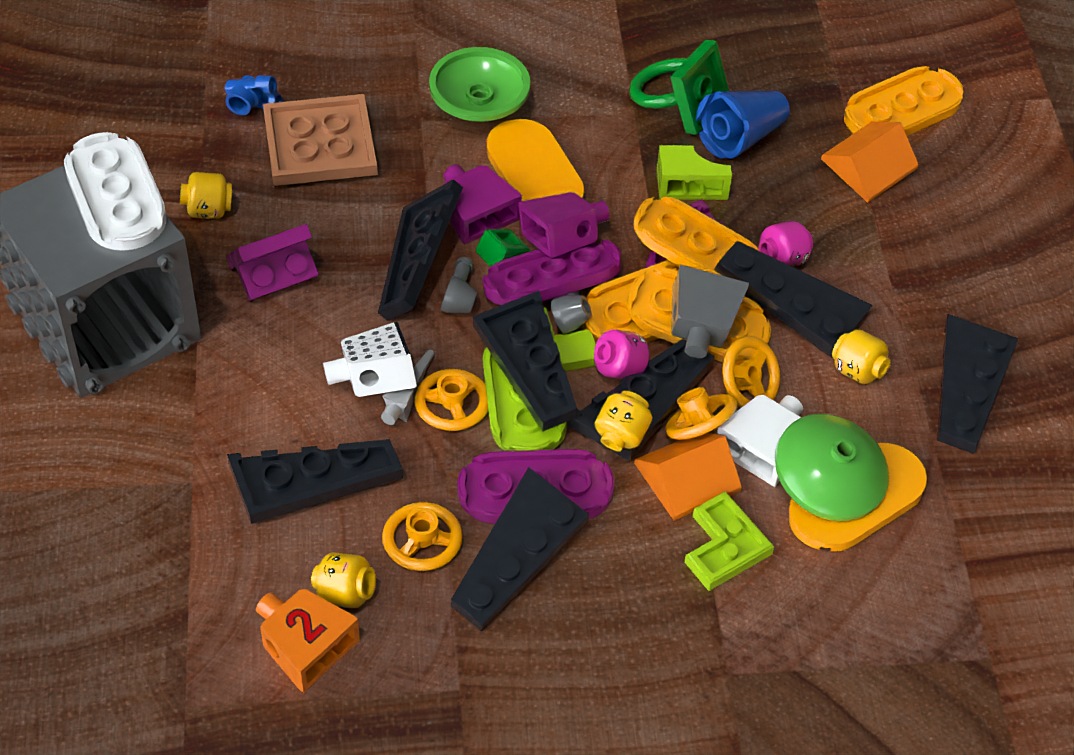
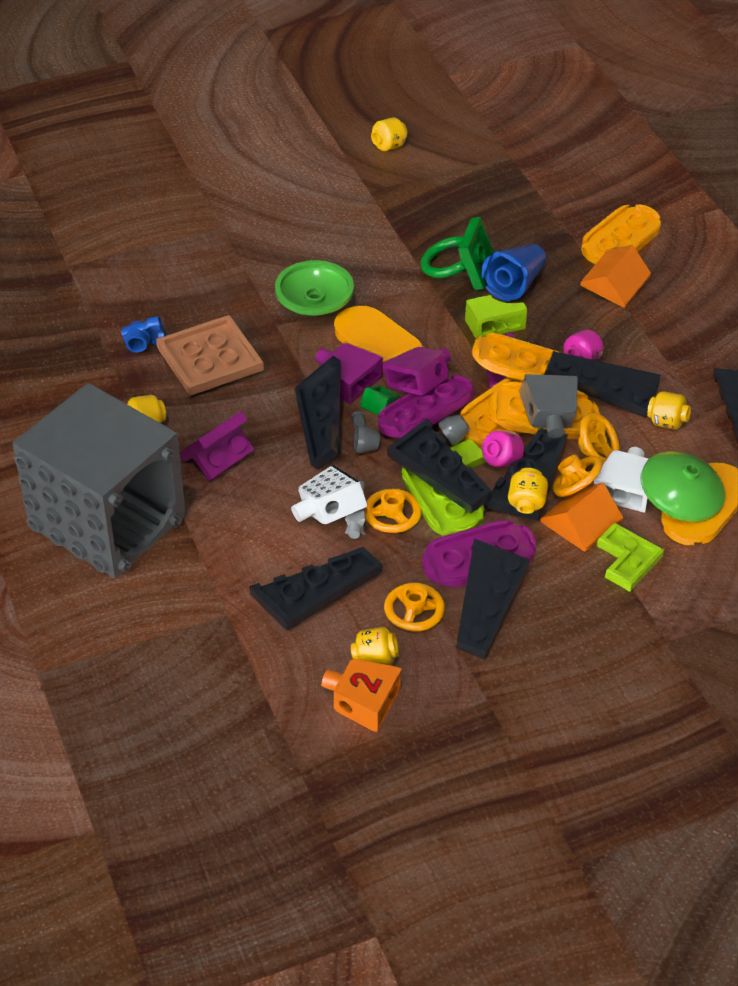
camera: 15 degrees left, 5 degrees down
(115, 191) = (110, 412): white tile -> none

